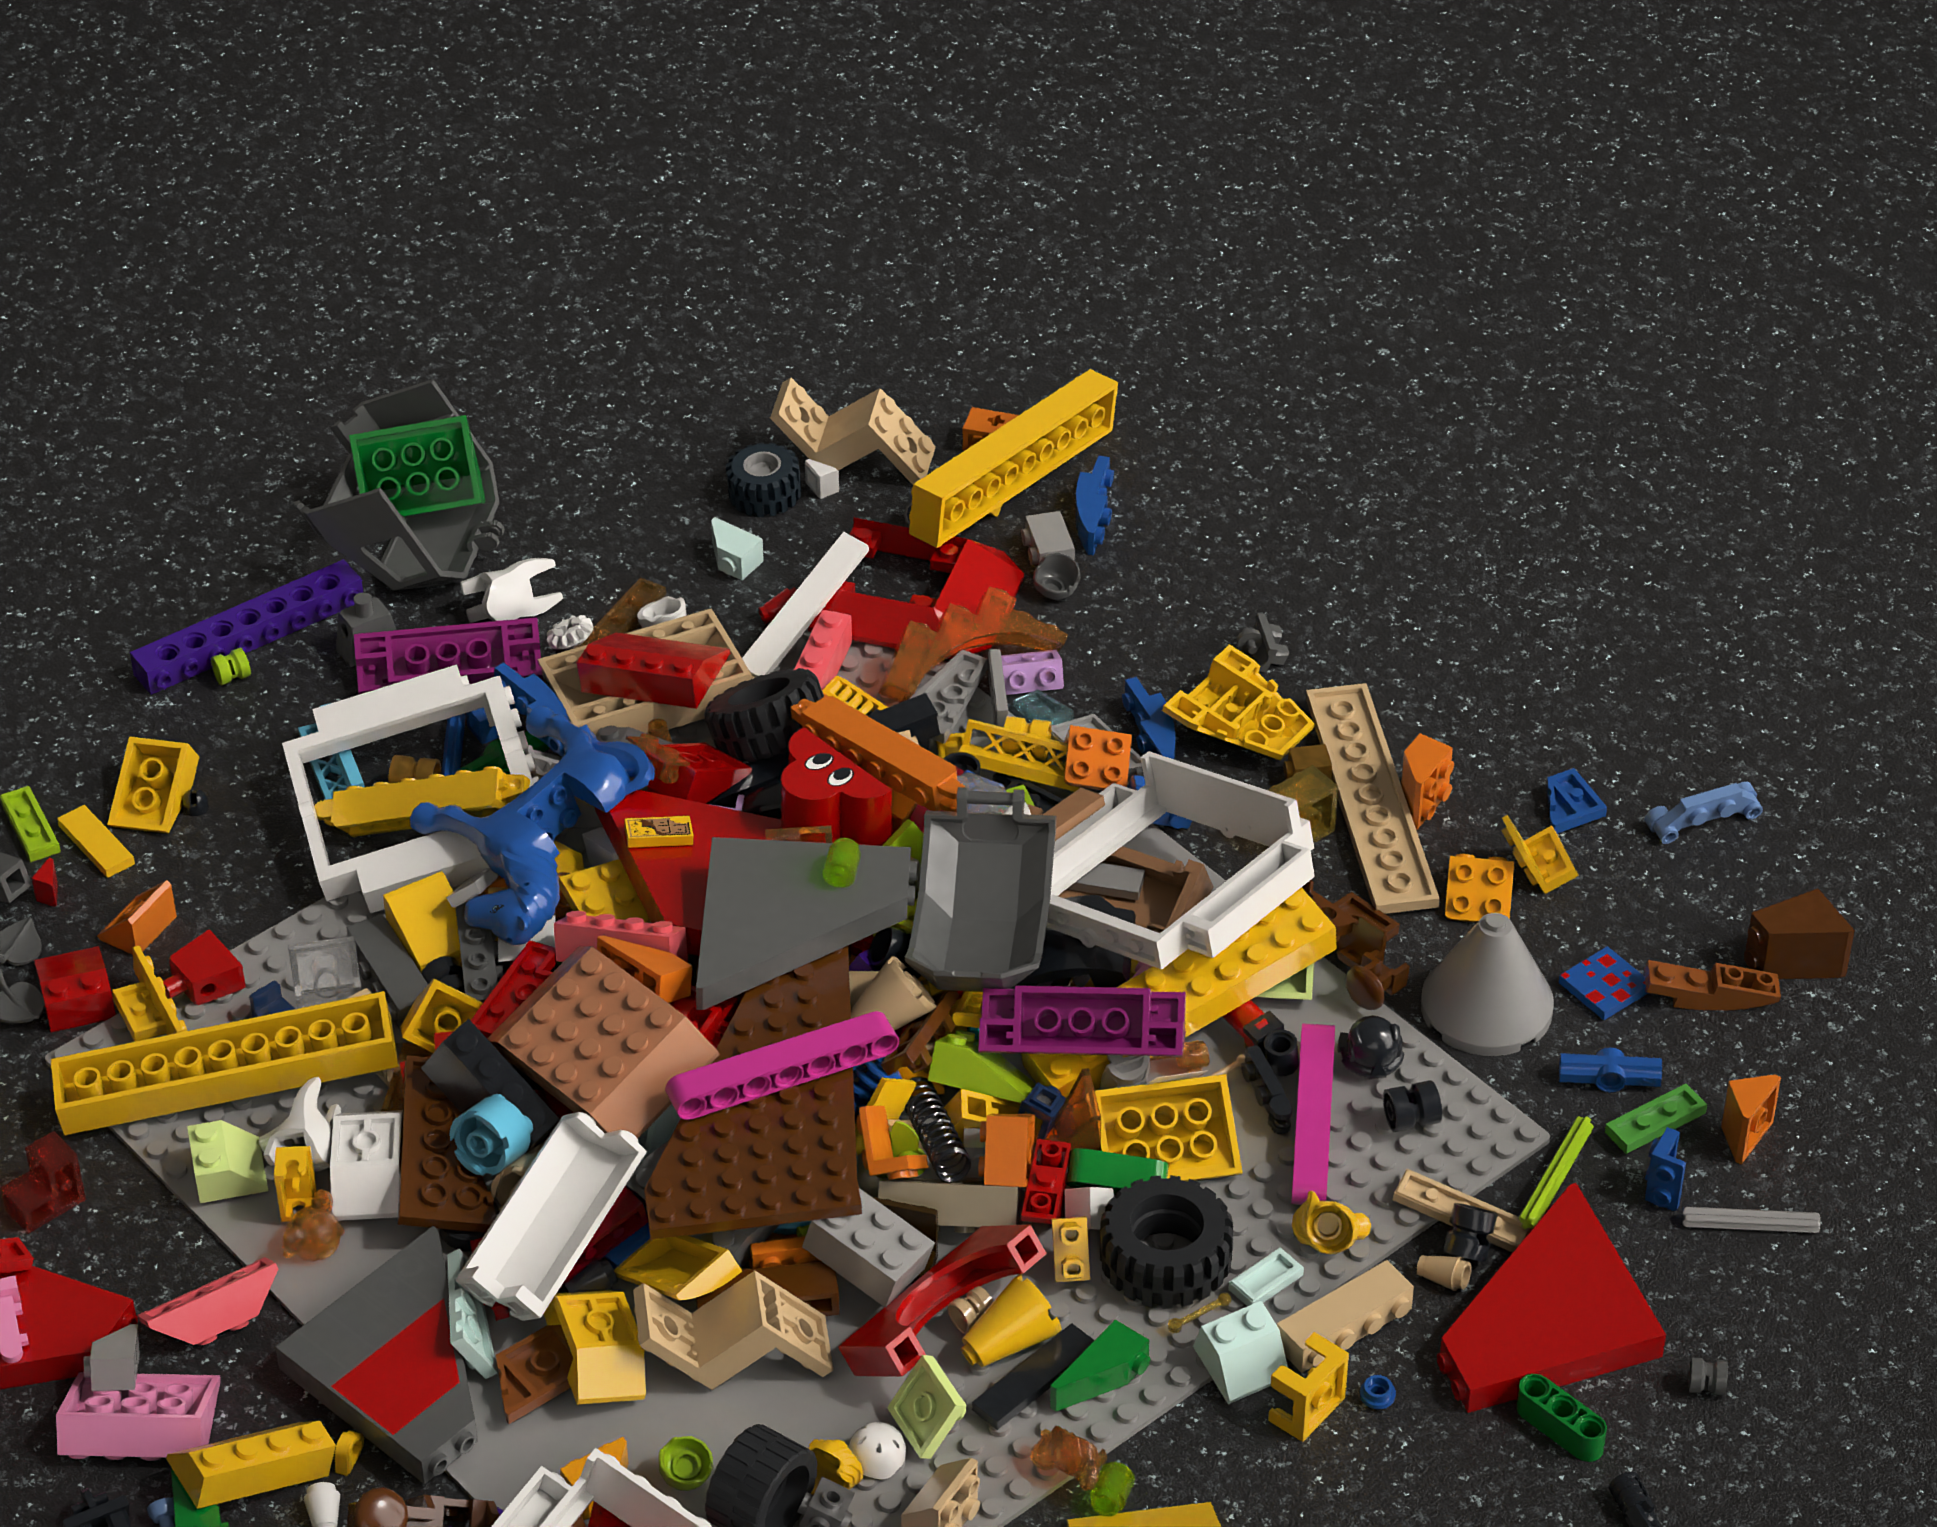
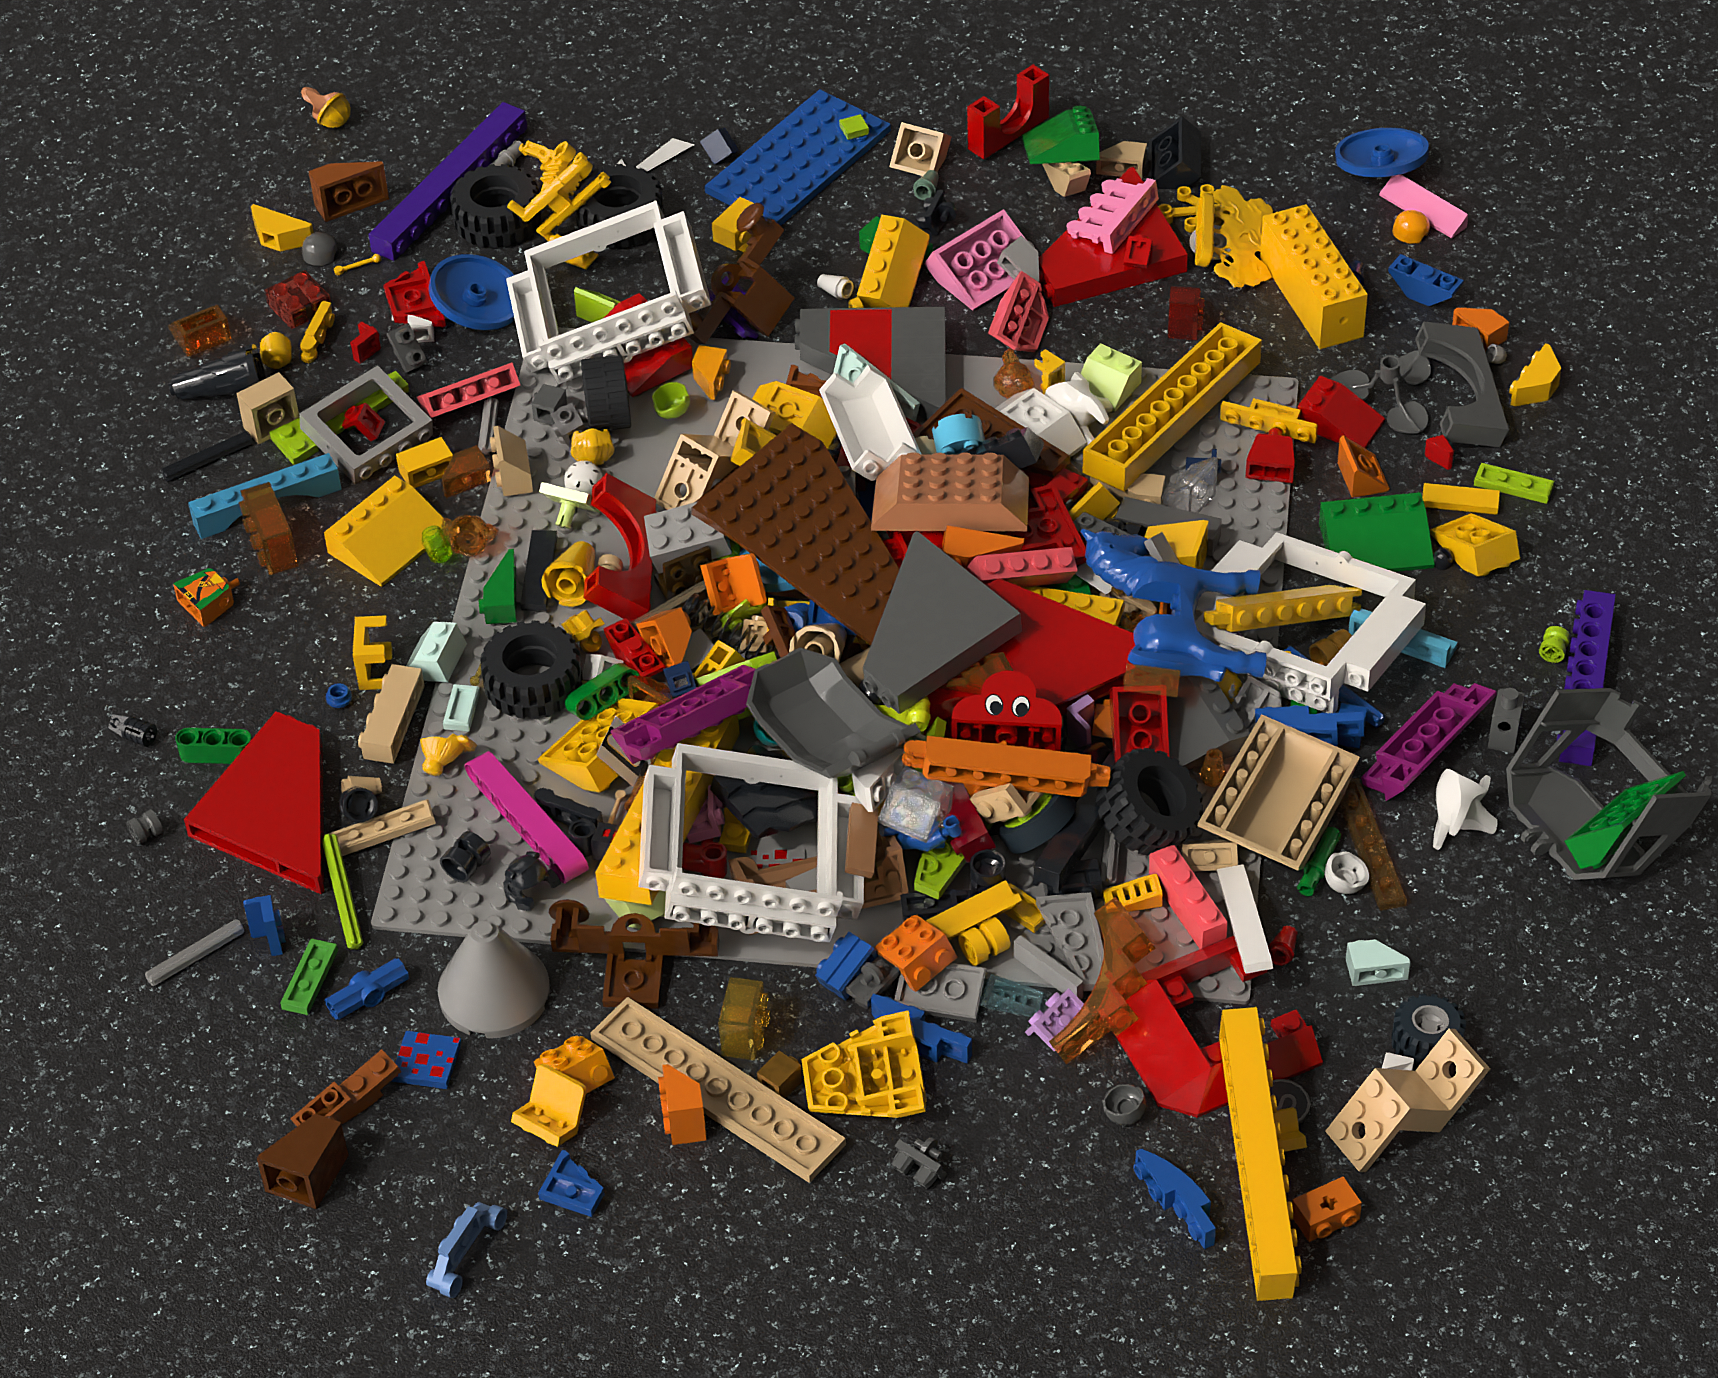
camera: 140 degrees right, 5 degrees up
(218, 855) = (1379, 530): none -> green slope
(570, 632) = (1396, 824): white gear -> none
(650, 669) = (1265, 778): red slope -> none
(658, 831) = (1082, 634): yellow tile -> none
(781, 1065) = (819, 536): dark pink beam -> none
(842, 863) = (916, 641): clear neon green brick -> none
(1046, 535) = (1167, 1135): light grey brick -> none
(1749, 1112) = (243, 1000): orange slope -> none

